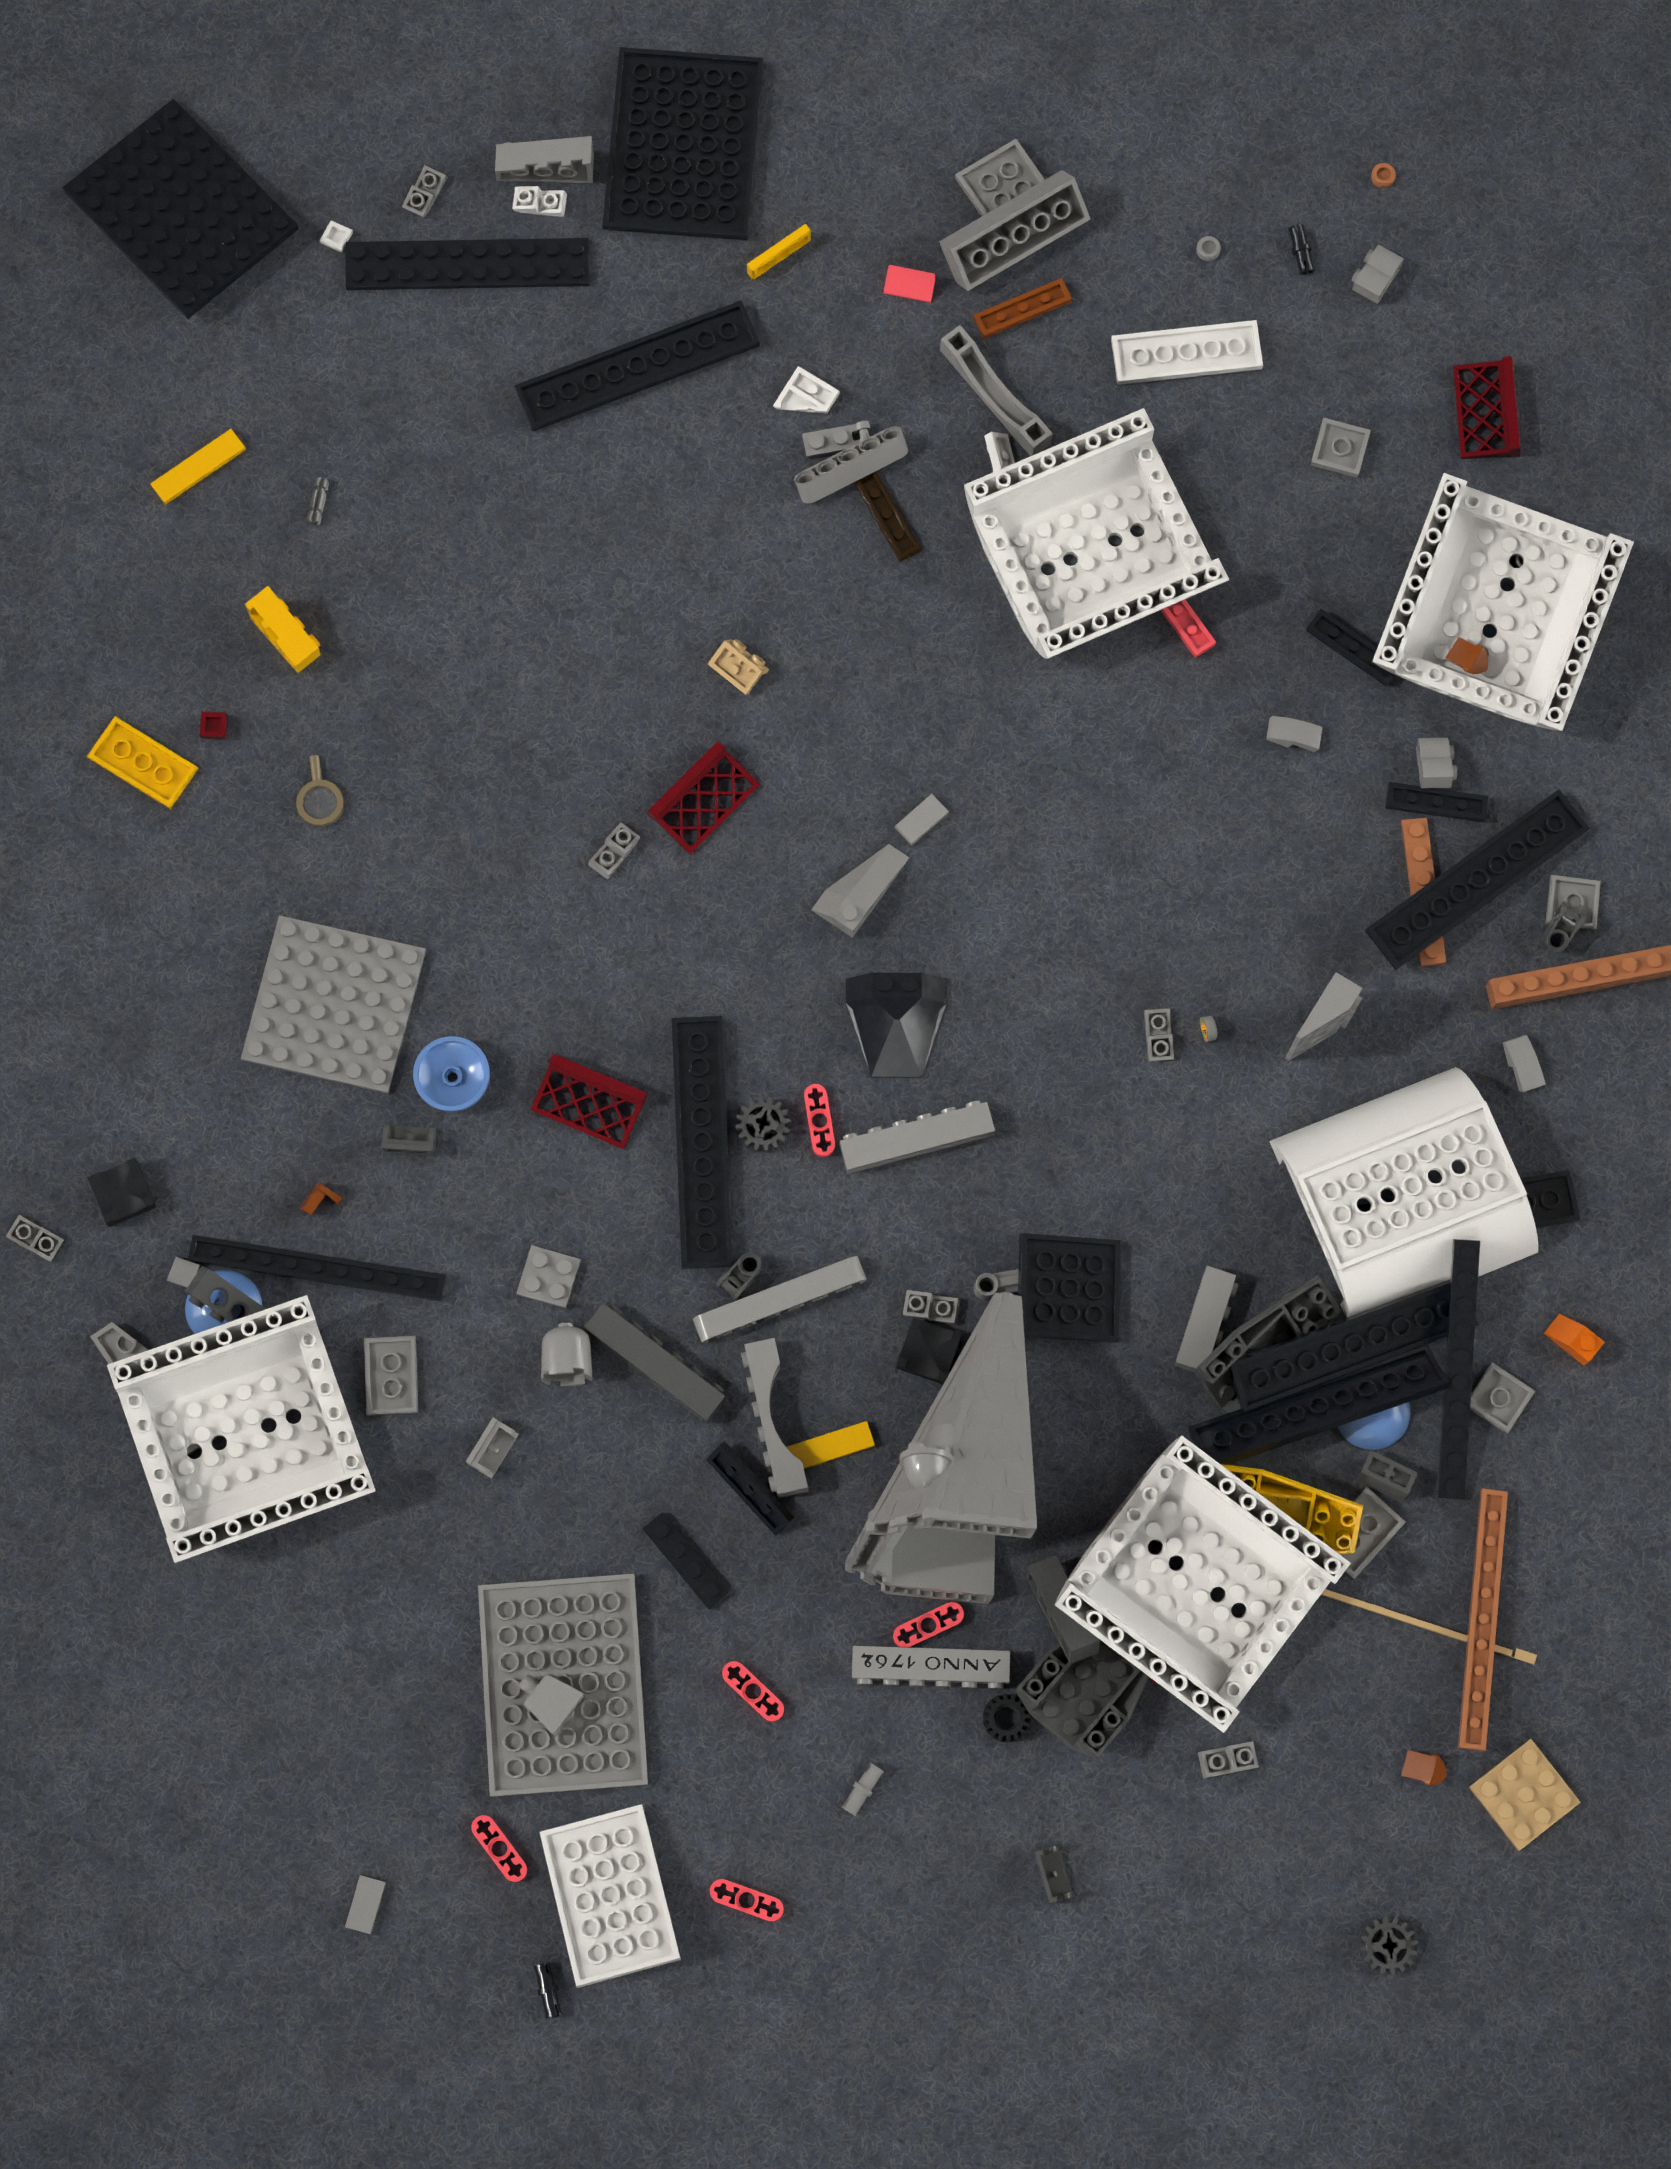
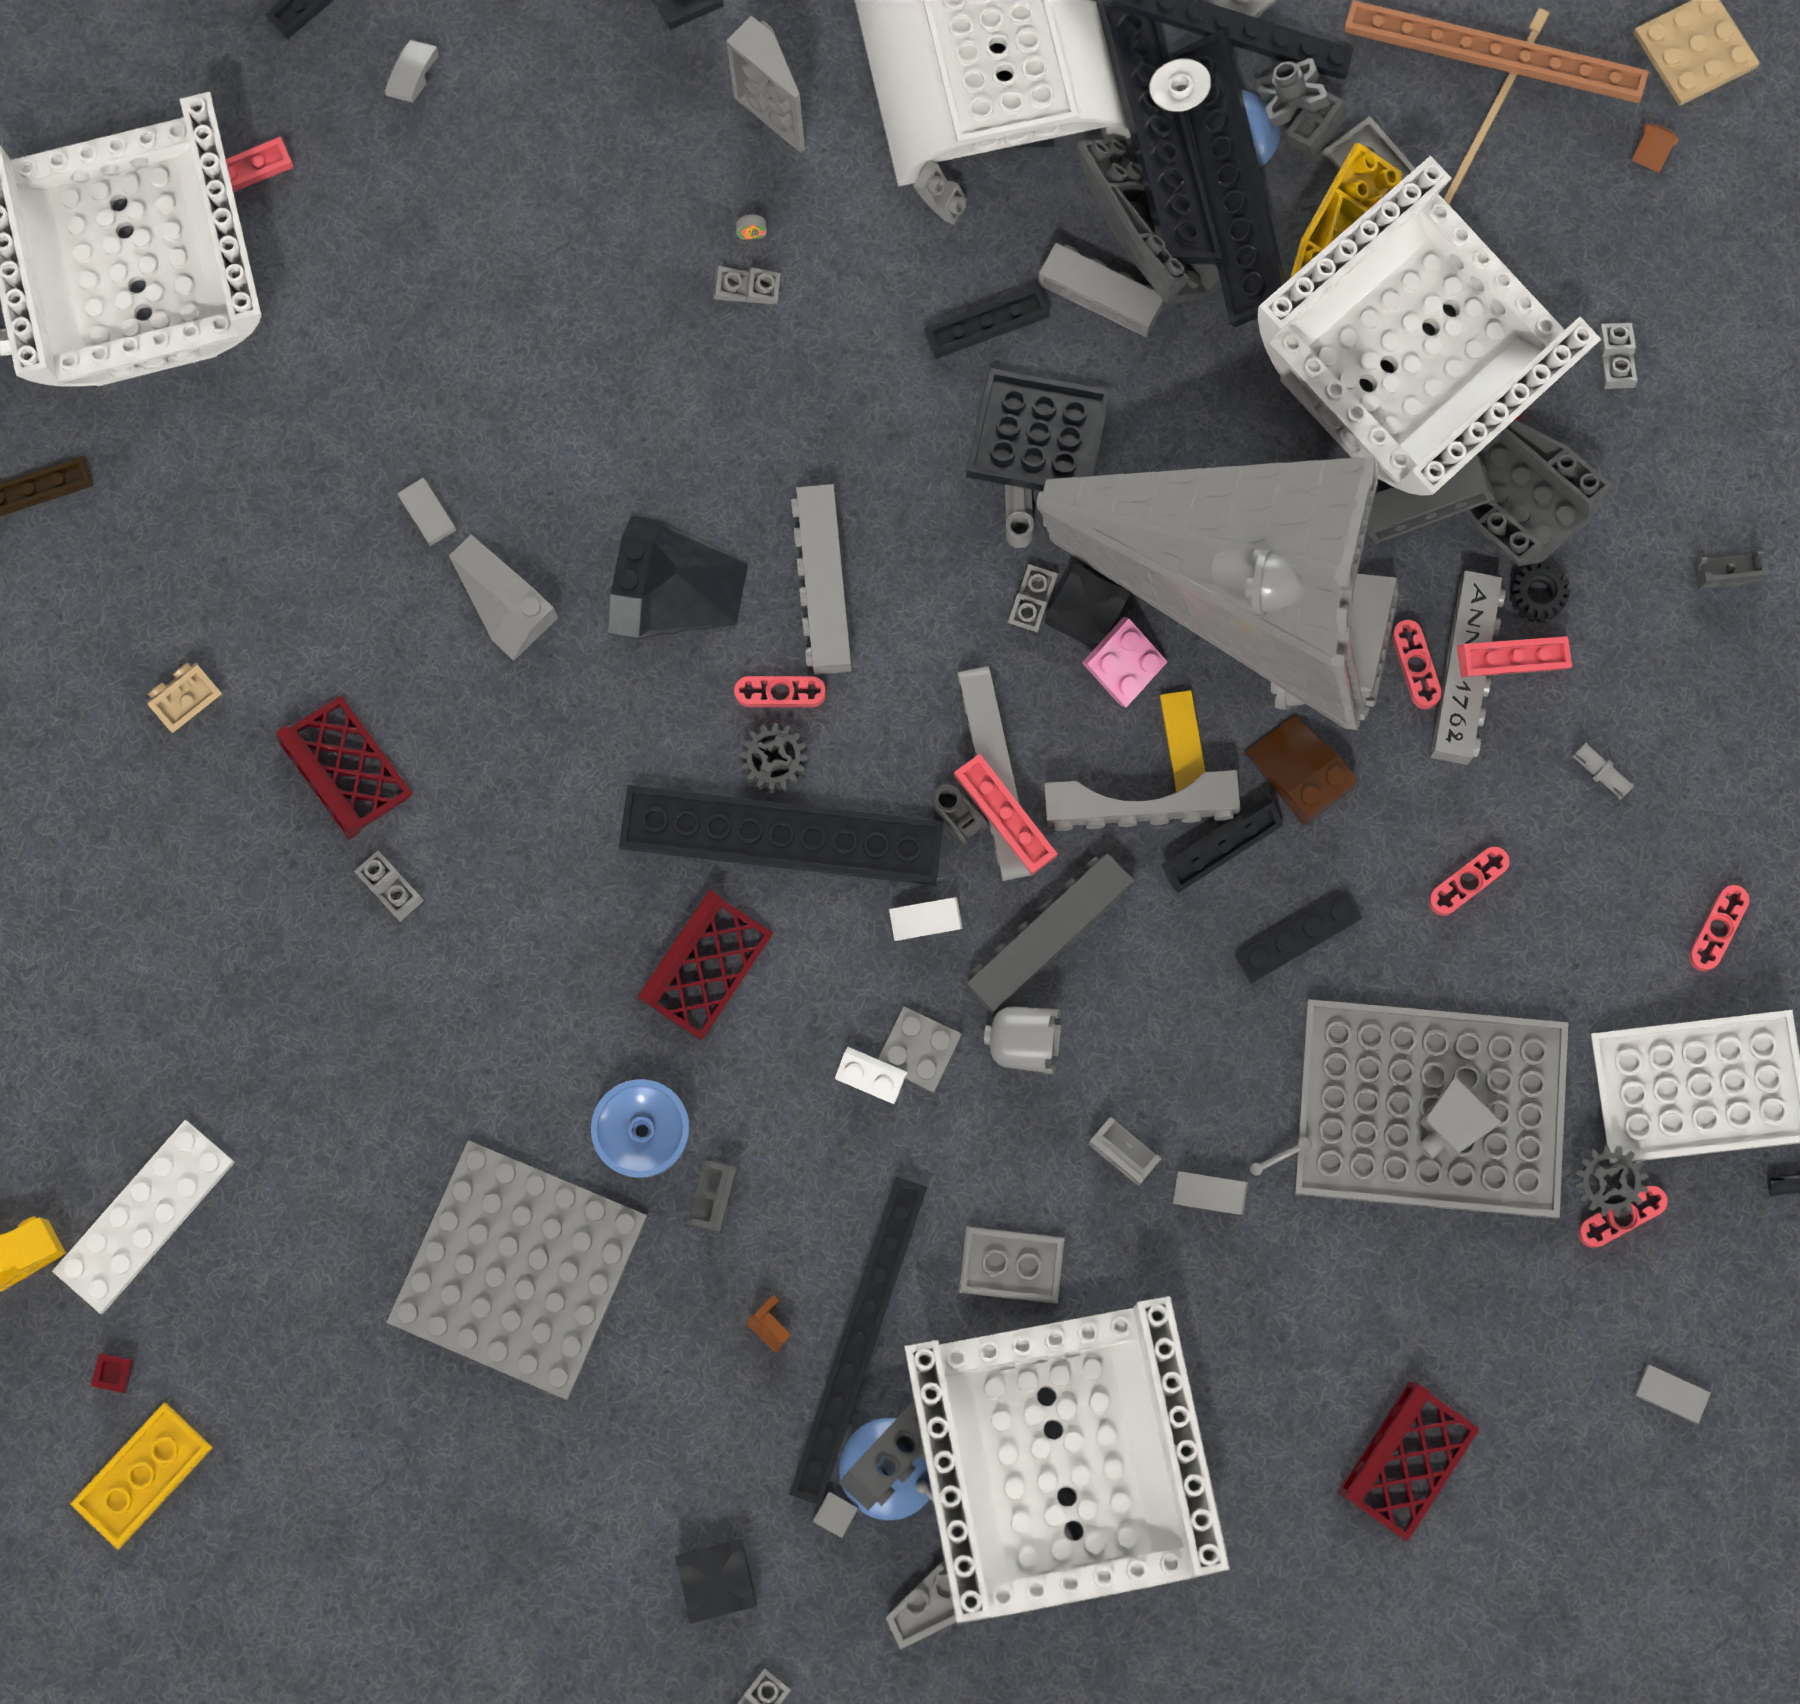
camera: 75 degrees left, 0 degrees up
(287, 1680) = (1384, 1444): none -> dark red fence
(319, 801) = (243, 1248): piece -> none
(333, 723) = (143, 1217): none -> white plate
(469, 1519) = (1210, 1193): none -> light grey slope
(515, 1585) = (1303, 1144): none -> light grey hinge
(521, 1242) = (871, 1075): none -> white plate
(528, 1822) = (1601, 1193): none -> dark grey gear
(652, 1264) = (925, 919): none -> white slope
(741, 1310) = (1005, 814): none -> coral plate
(822, 1542) = (1302, 769): none -> reddish brown slope
(887, 1387) = (1124, 662): none -> bright pink plate
(942, 1700) = (1514, 656): none -> coral plate
(1161, 1232) = (987, 322): none -> black plate
(1264, 1175) = (939, 194): none -> light grey slope
(1396, 1345) = (1180, 85): none -> white dish
(1410, 1449) = (1290, 88): none -> dark grey plant

